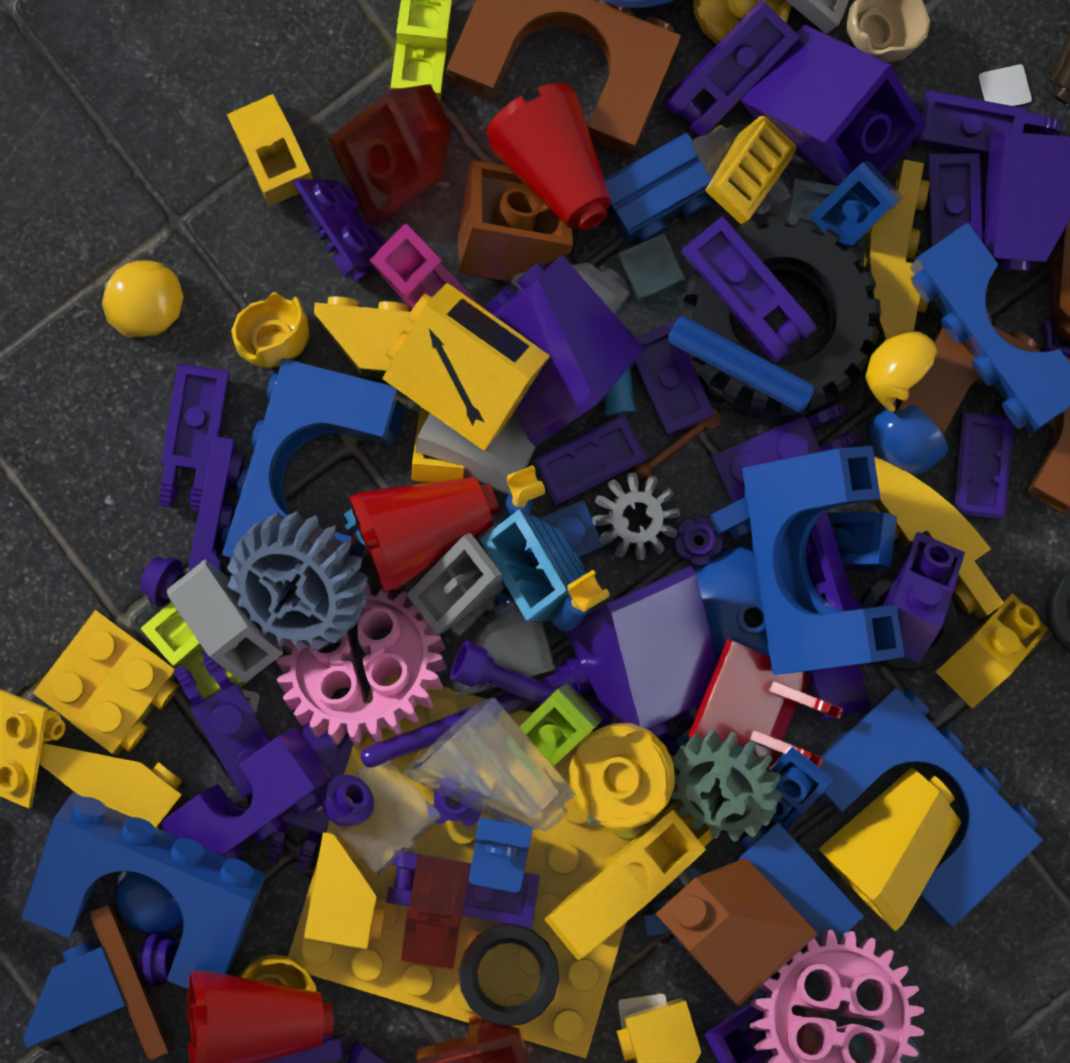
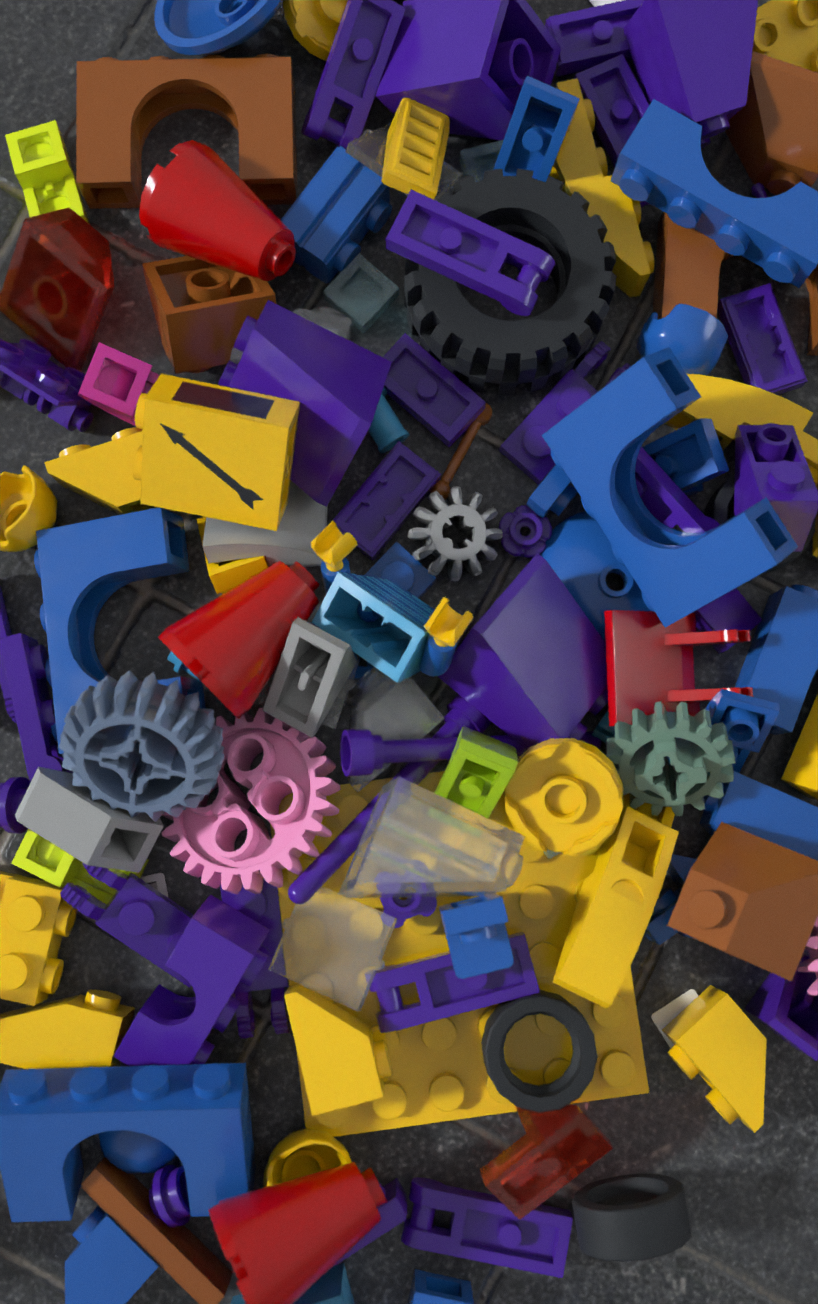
camera: 25 degrees left, 0 degrees up
(340, 808) = (290, 962): dark purple plate -> none
(435, 912) = (436, 1022): clear red slope -> none
(741, 364) = (495, 330): blue axle -> none
(899, 366) = (650, 268): yellow hair -> none

